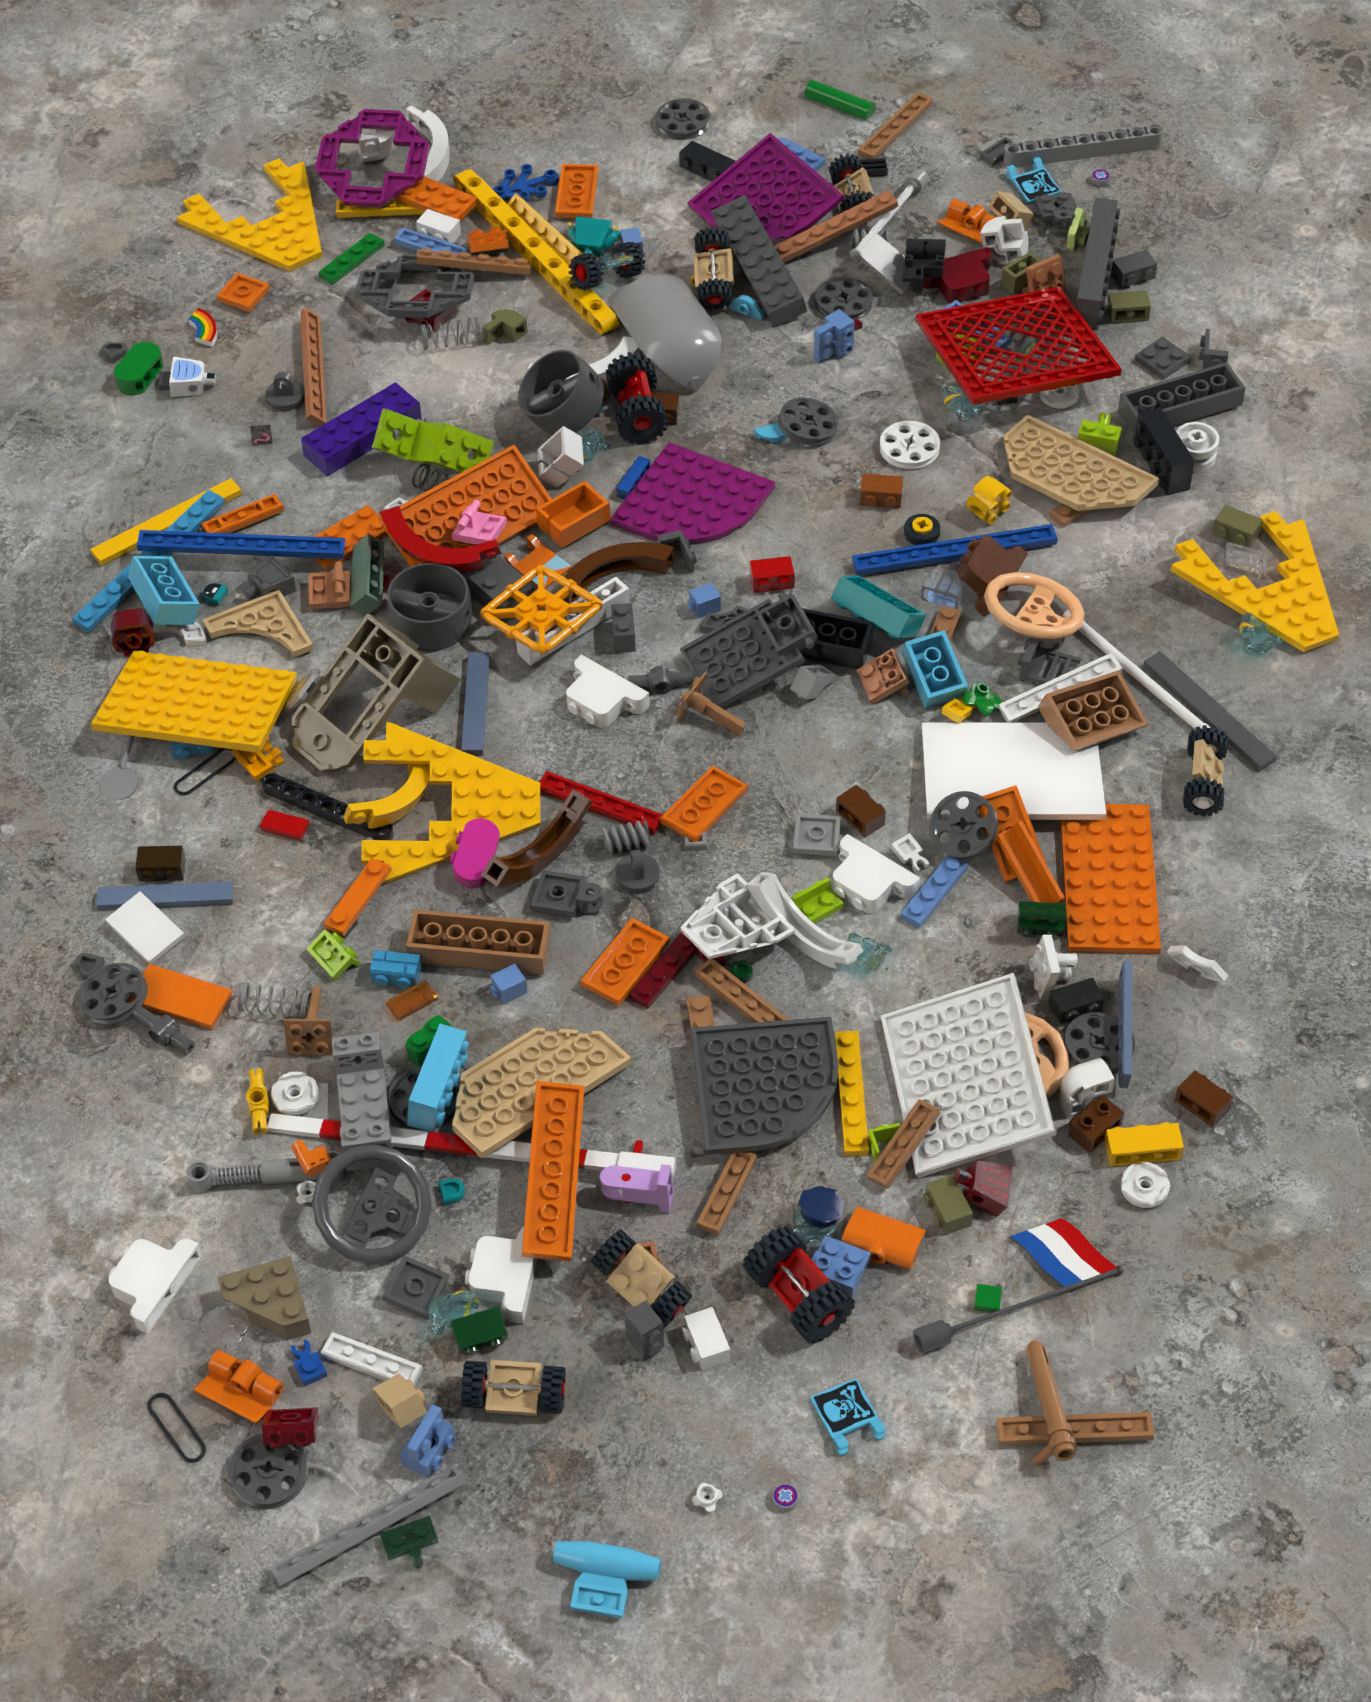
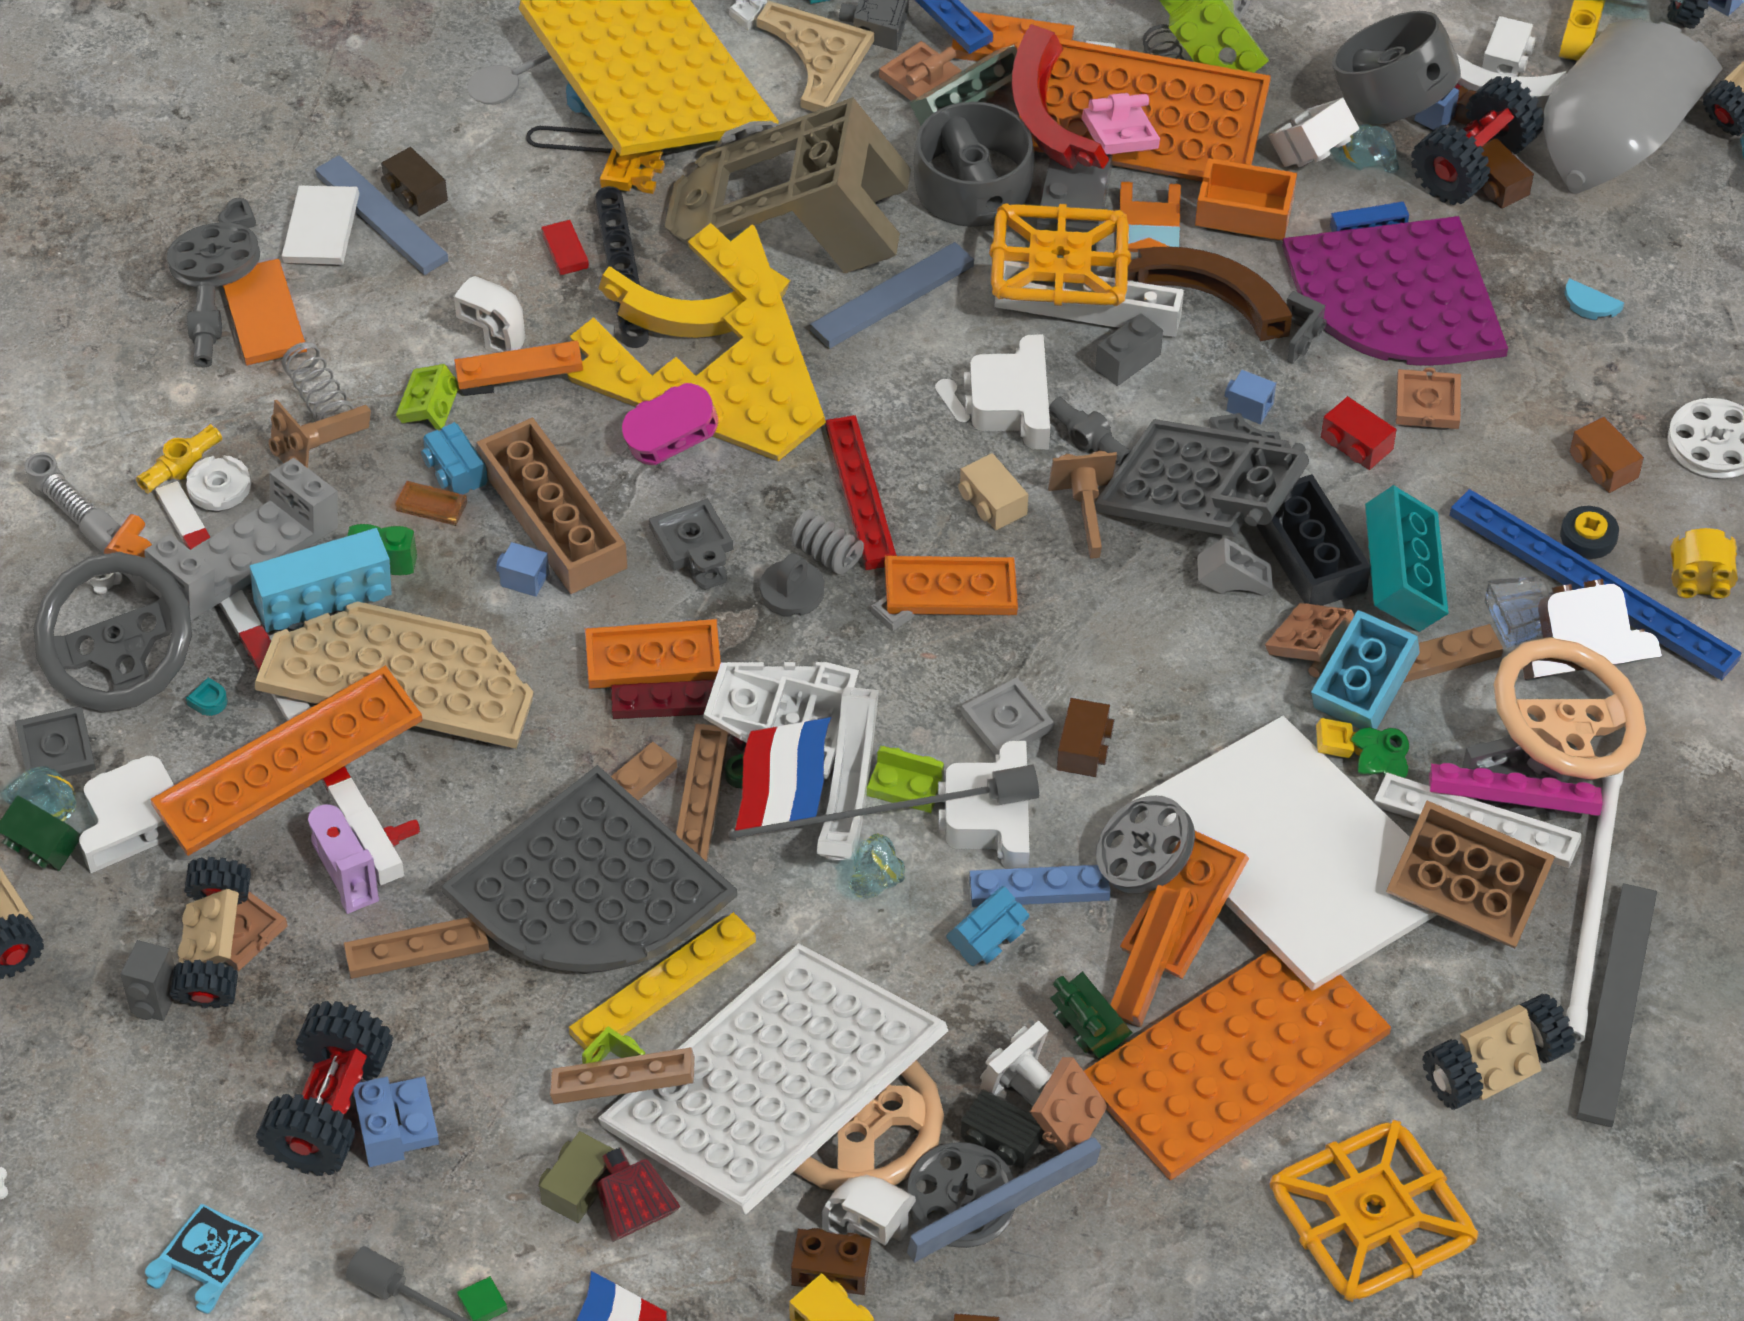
camera: 50 degrees right, 0 degrees up
(311, 881) = (494, 311): none -> white brick
(535, 857) = (723, 481): reddish brown arch -> none
(564, 722) = (946, 389): none -> white sticker
(579, 344) = (1509, 47): none -> white brick
(661, 745) = (993, 492): none -> tan brick
(706, 1338) = (195, 1051): white brick -> none
(776, 533) = (1428, 399): none -> nougat plate
(783, 948) = (787, 779): none -> flag
(785, 1497) = (46, 1261): tile -> none
(808, 421) = (1648, 314): dark grey wedge -> none
(817, 1213) = (450, 1051): dark blue piece -> none
(884, 1238) = (475, 1138): orange panel -> none
(909, 851) = (1070, 821): white plate -> none
(947, 926) = (989, 926): none -> dark azure brick
(1056, 661) = (1515, 789): none -> dark pink plate
(1092, 960) = (1068, 1106): none -> nougat plate
(1209, 968) = (1180, 1227): white tile -> none
(1258, 891) = (1370, 1230): none -> light orange plate

